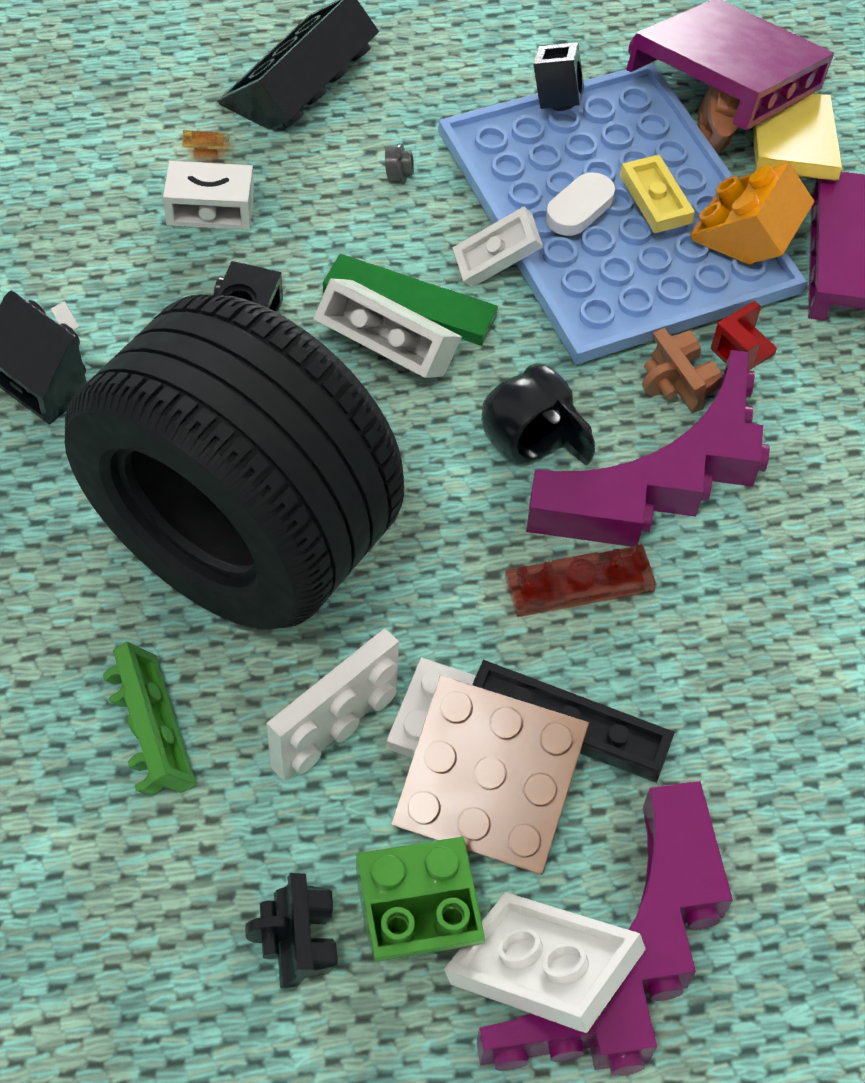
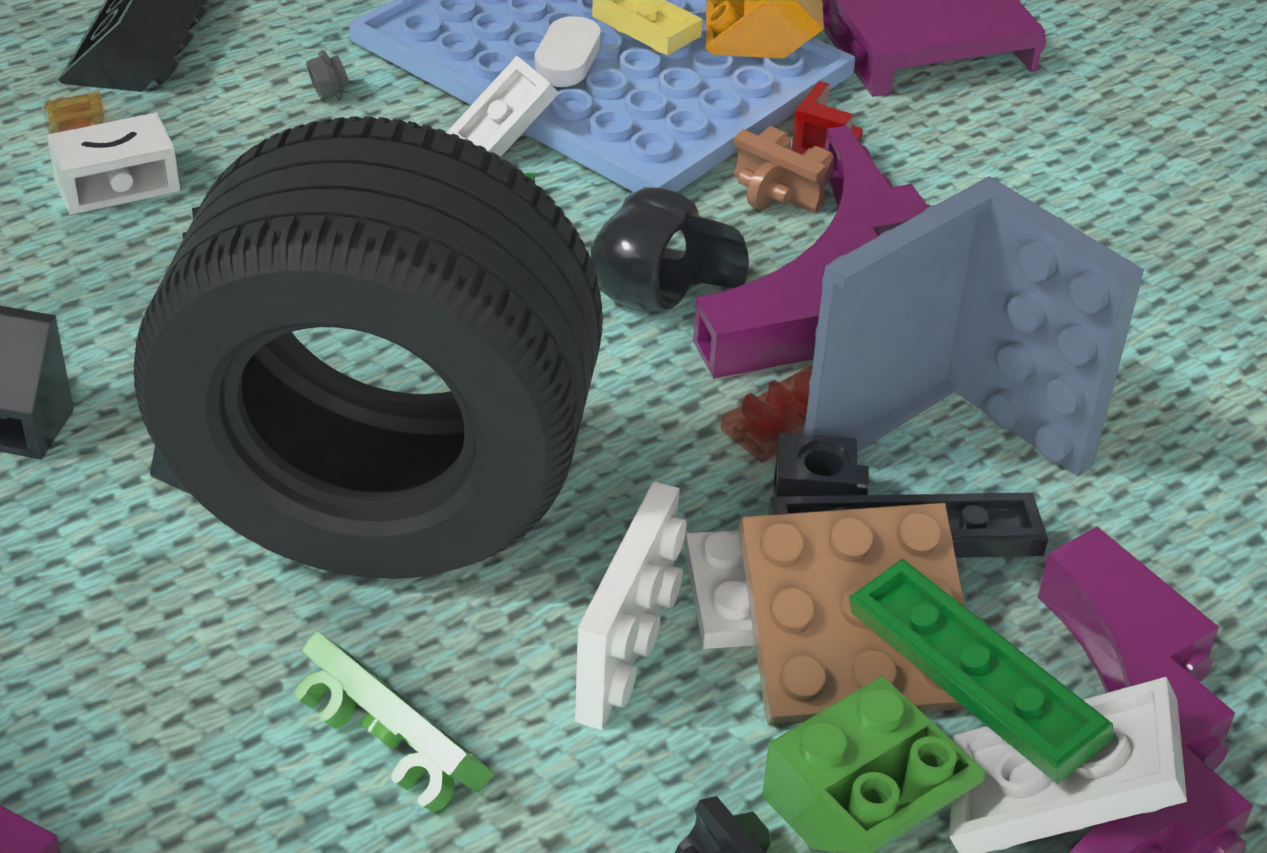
camera: 25 degrees left, 15 degrees down
(524, 866) = (982, 670): none -> green tile
(534, 634) = (818, 466): none -> black brick
(676, 562) = (981, 305): none -> sand blue bracket

